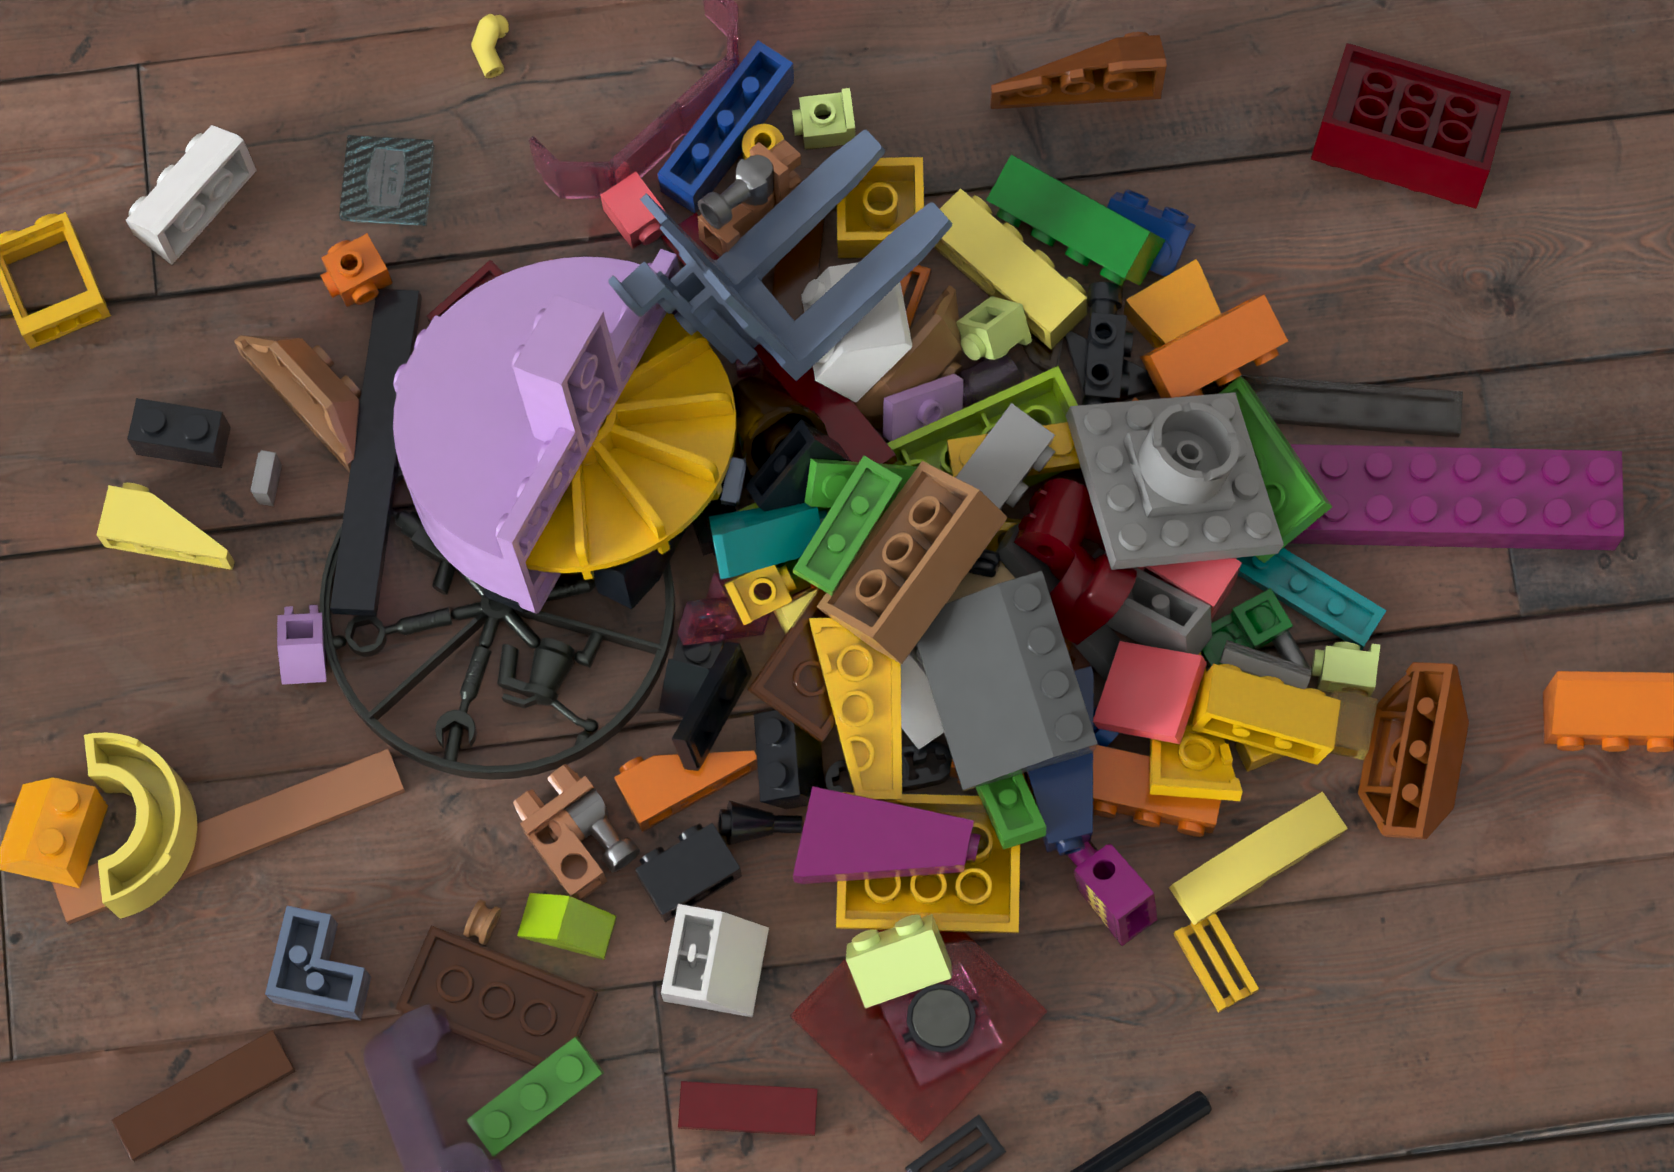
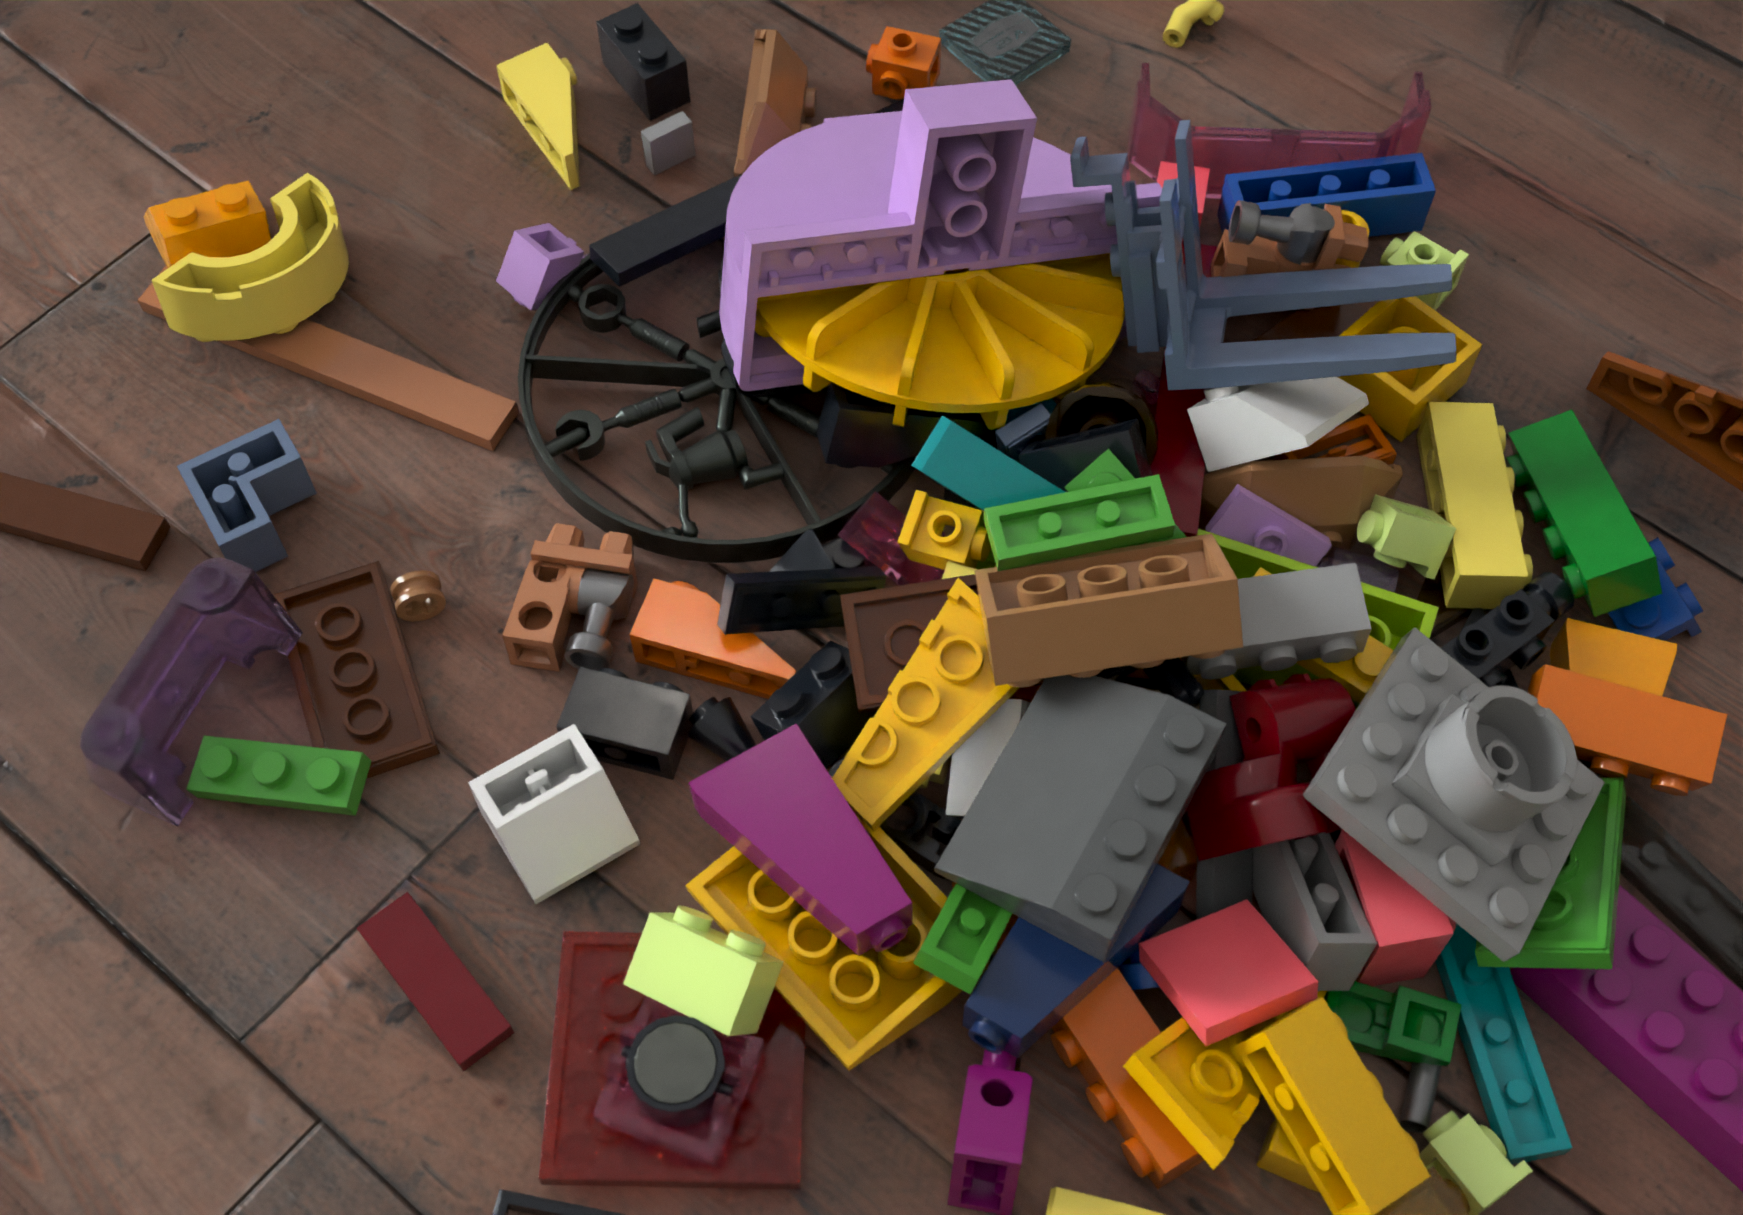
camera: 45 degrees right, 15 degrees down
(567, 924) = (483, 672): lime slope -> none
(1264, 664) = (1380, 1065): light grey tile -> none

